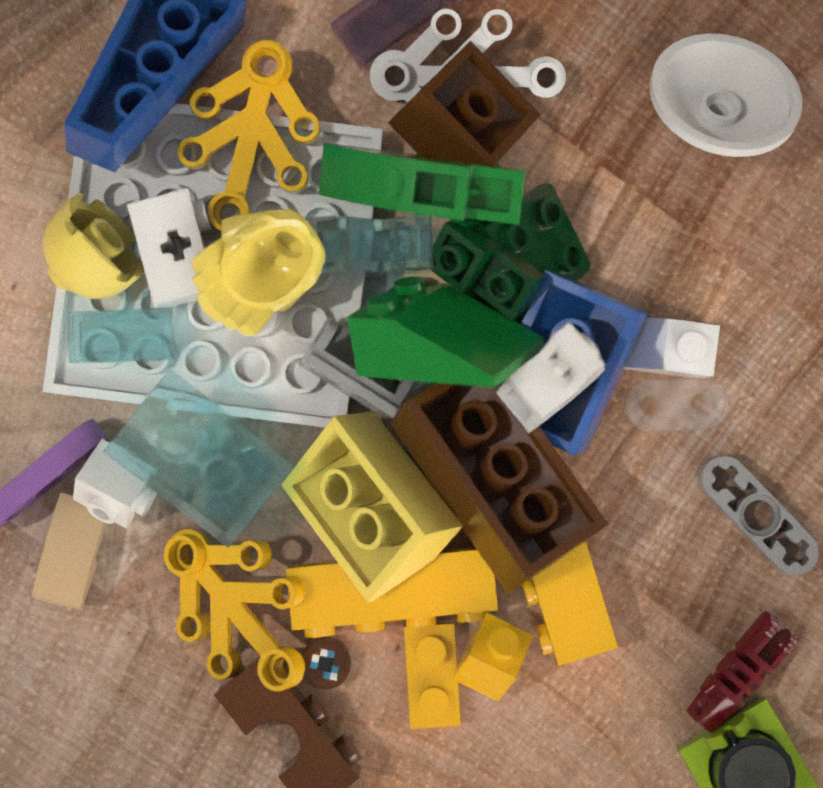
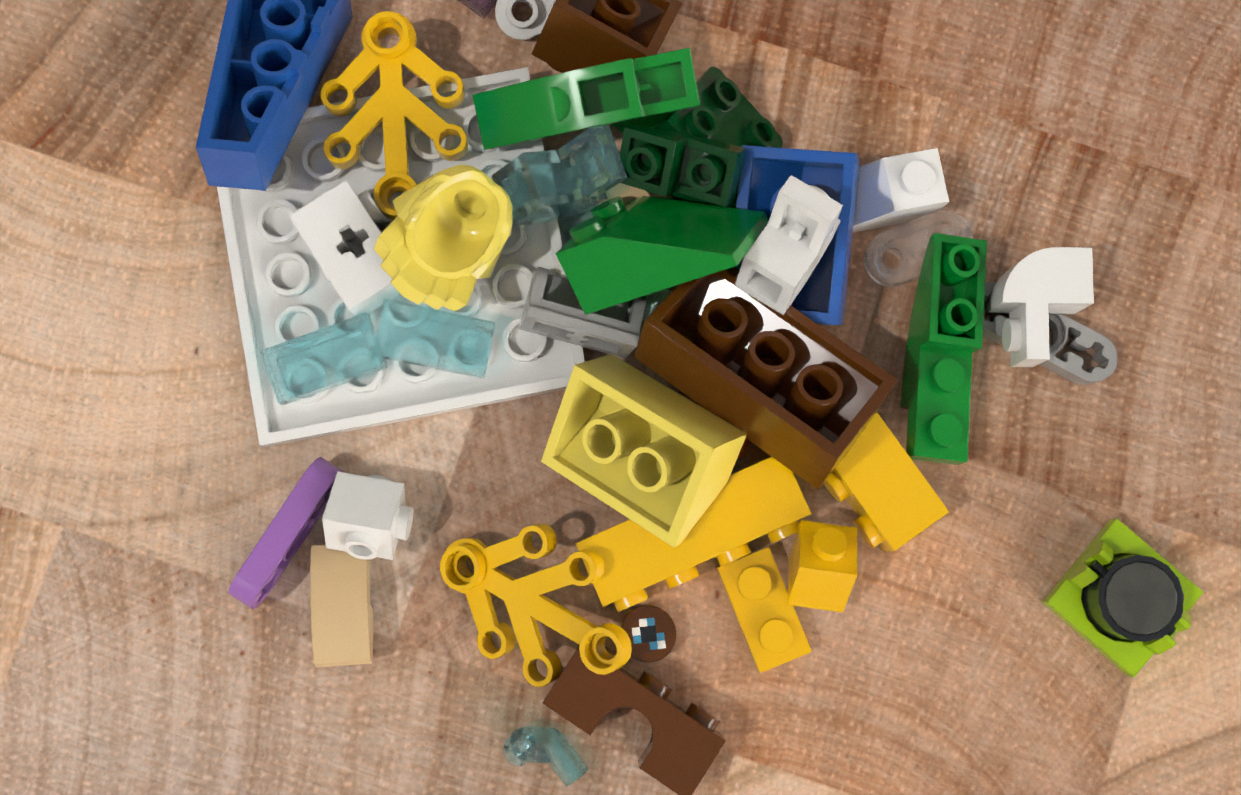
camera: 25 degrees left, 5 degrees down
(90, 249) = (263, 278): light yellow cylinder -> none
(198, 457) = (446, 454): clear light blue slope -> none
(206, 729) = (545, 745): none -> clear light blue arm
(220, 351) = (433, 338): none -> clear light blue tile
(663, 500) = (940, 347): none -> green slope
(741, 671) = (1081, 498): dark red hinge -> none
(761, 476) = (1040, 284): none -> white brick

